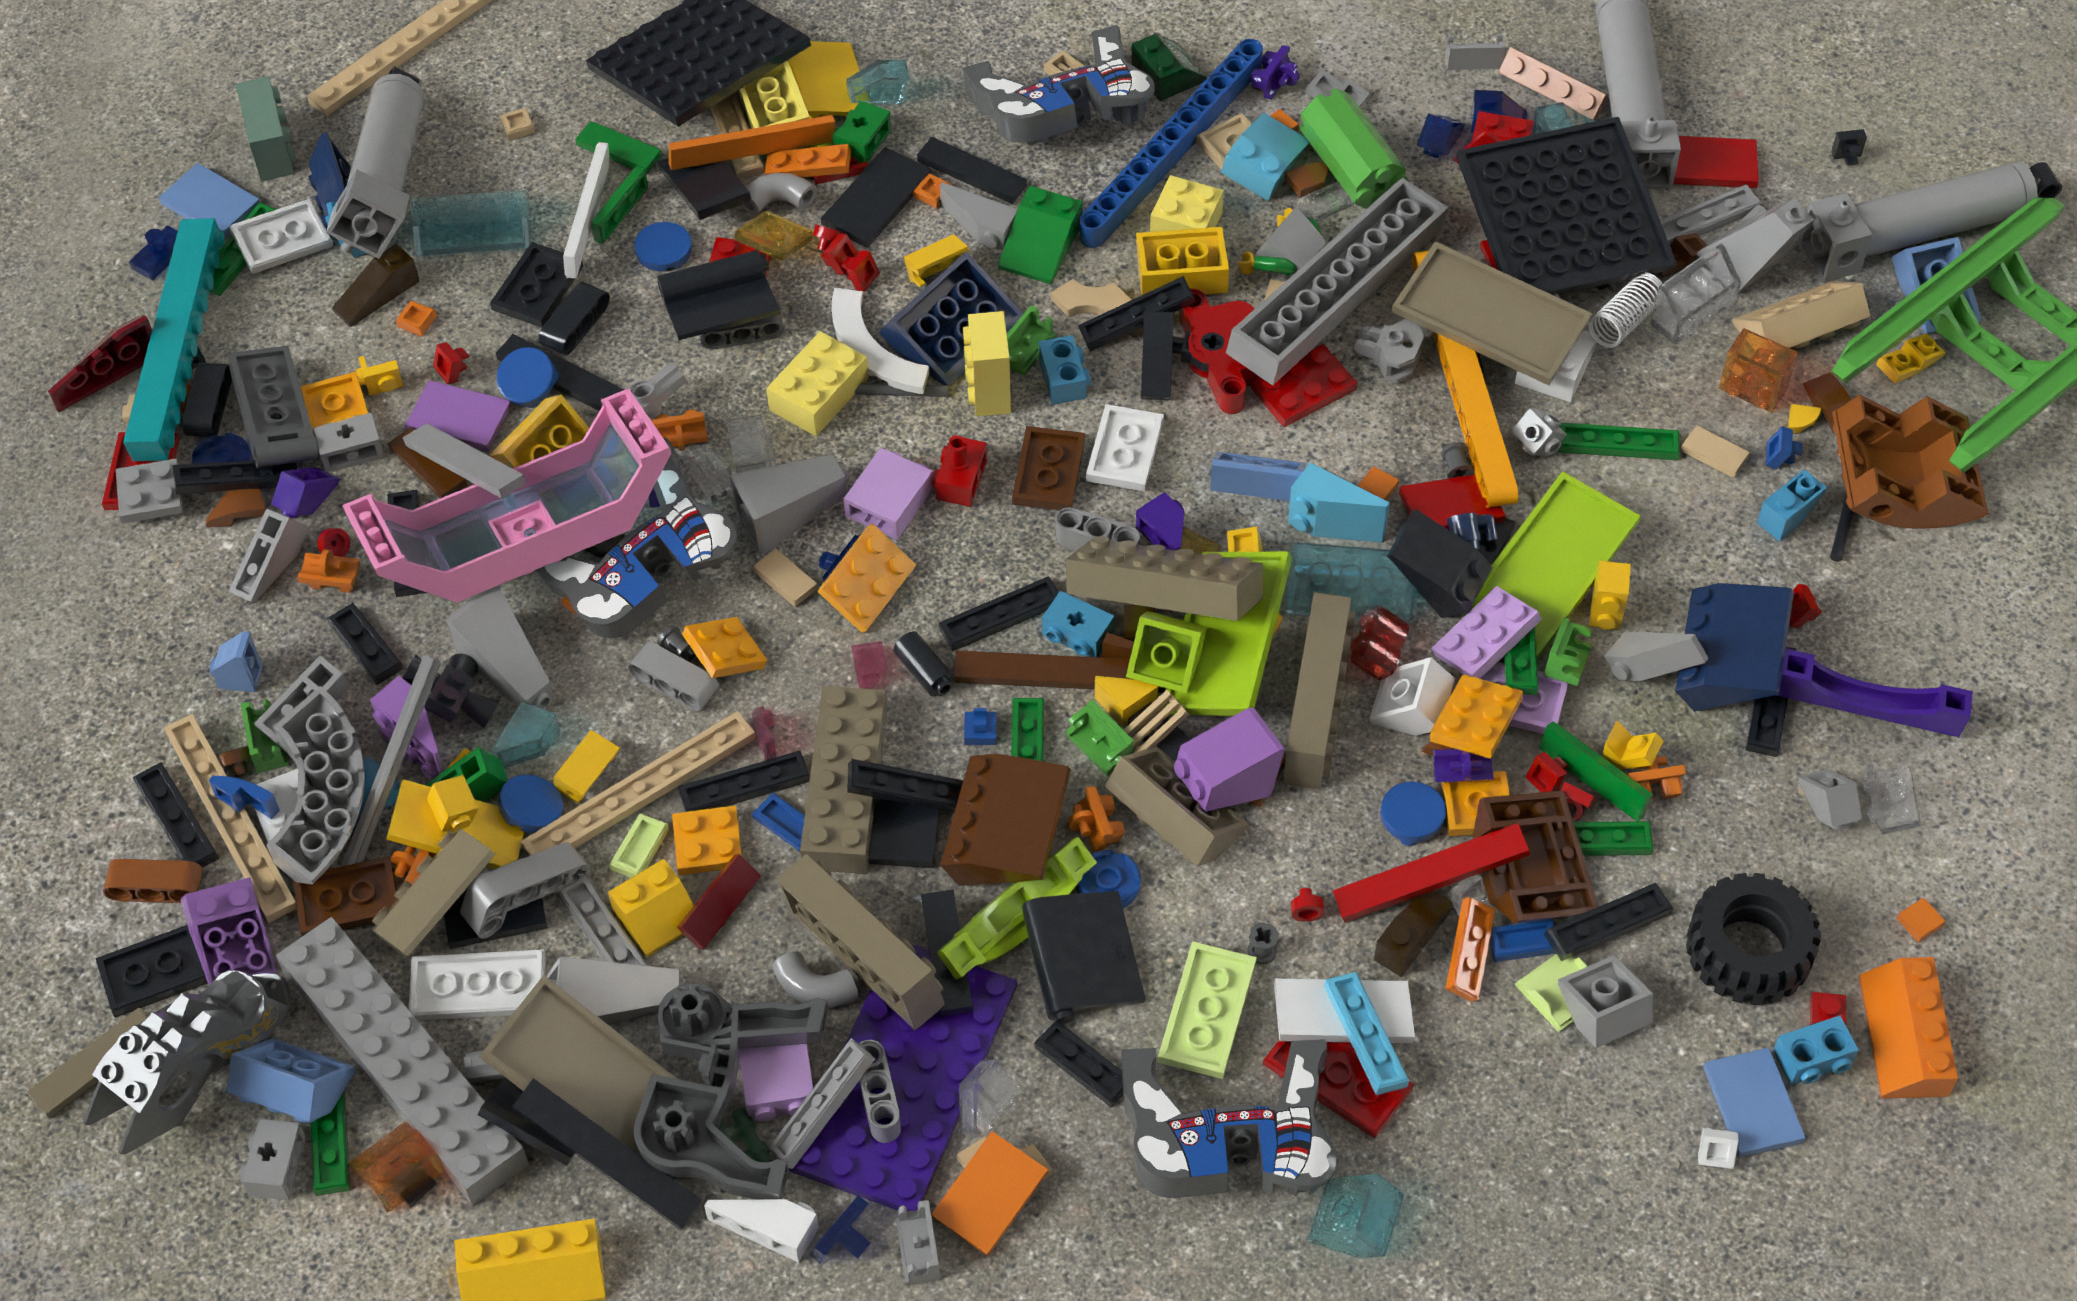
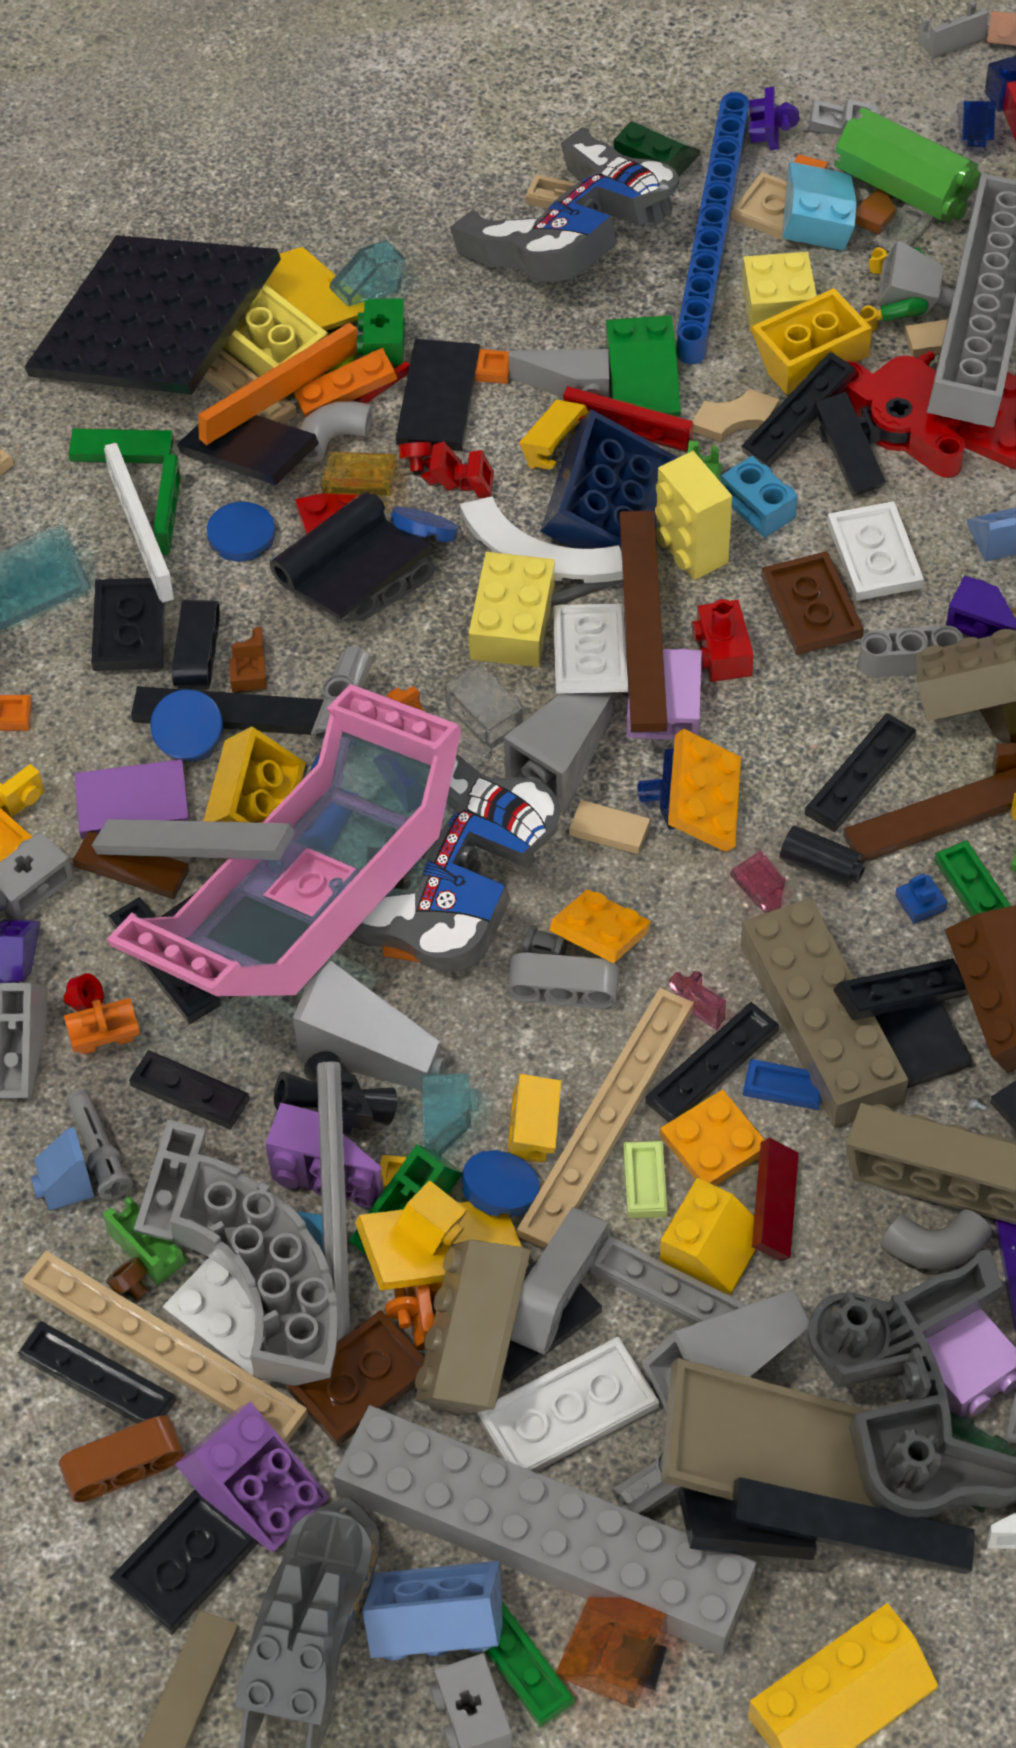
camera: 25 degrees left, 0 degrees up
(239, 793) = (164, 1313): blue slope -> none
(273, 666) = (102, 1158): none -> light grey pin
(449, 362) = (86, 744): red tile -> none
(604, 349) = (248, 664): none -> dark orange slope
(794, 290) = (423, 523): none -> blue tile
(852, 436) = (590, 648): none -> white tile
(900, 431) = (643, 622): none -> reddish brown tile
(972, 170) = (521, 330): black tile -> none
(1004, 271) = (647, 423): none -> red tile
(1077, 625) = (953, 750): dark azure brick -> none

